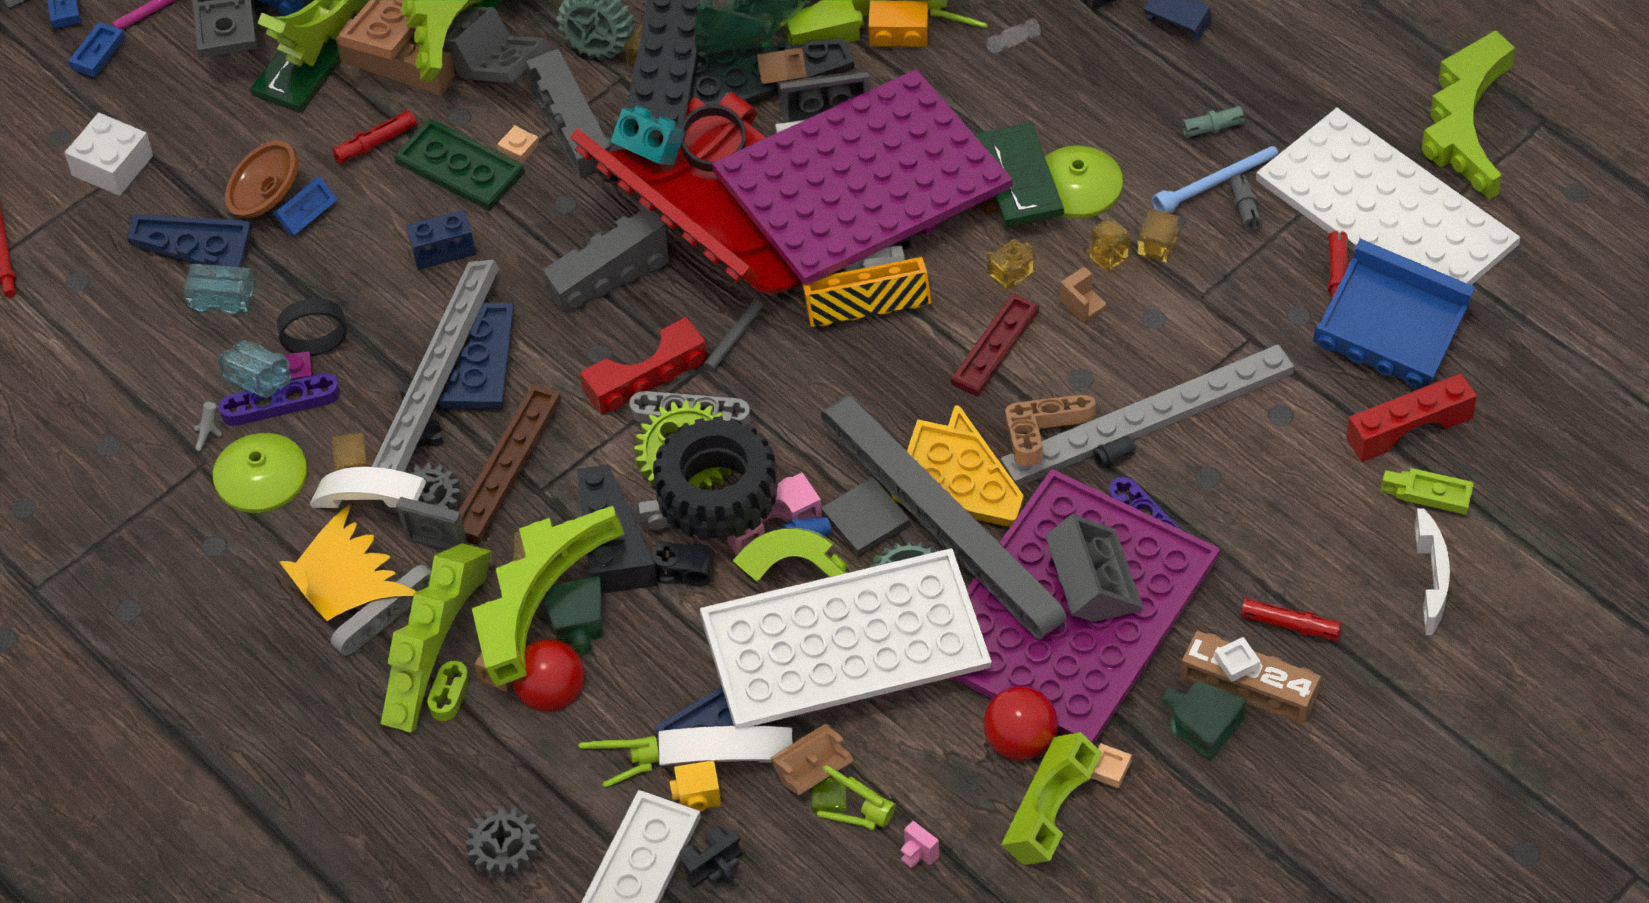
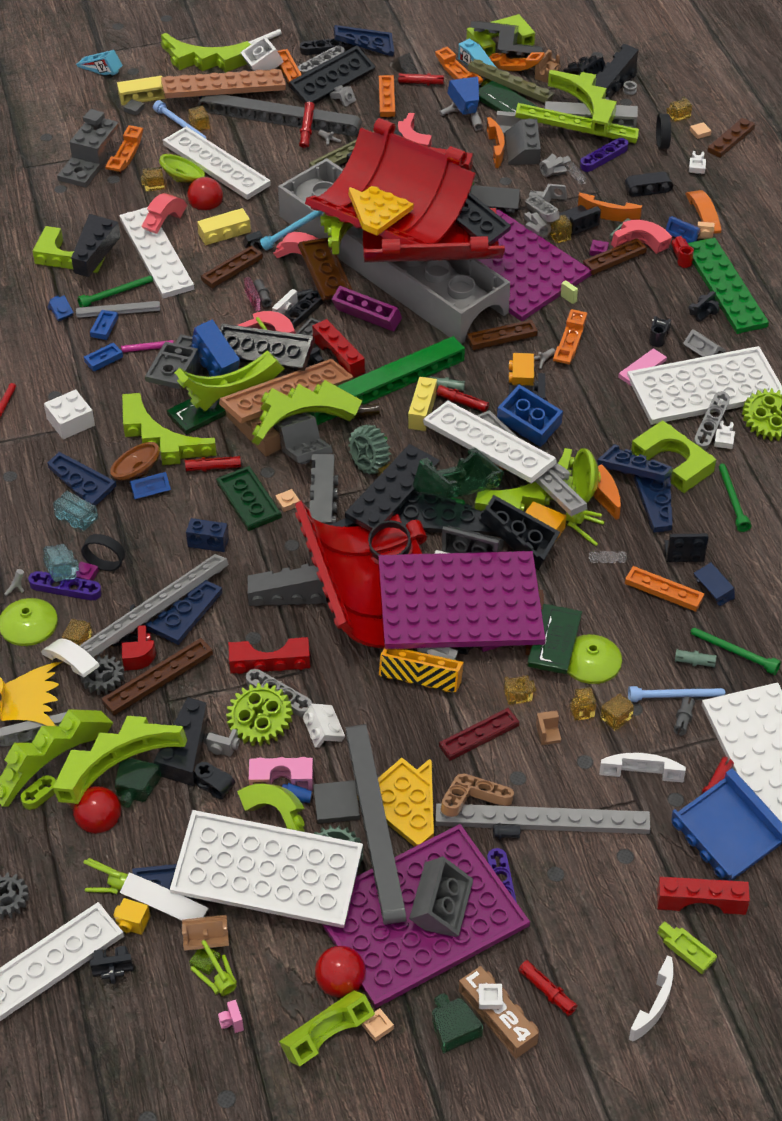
camera: 25 degrees right, 5 degrees down
(223, 123) = (172, 445): none -> lime arch
(431, 524) = (89, 692): dark grey tile -> none
(457, 443) = (138, 654): none -> red brick
(647, 138) = (351, 524): teal brick -> none
(719, 511) = (254, 716): black tyre -> none
(733, 335) = (332, 660): dark grey bar -> none
(781, 65) = (457, 517): medium nougat panel -> none
(781, 424) = (323, 724): none -> white bracket
(878, 45) = (520, 529): none -> black wedge
(1115, 46) = (664, 588): none -> orange plate
(1270, 279) = (642, 762): none -> white slope
(1313, 88) = (771, 665): none -> green piece

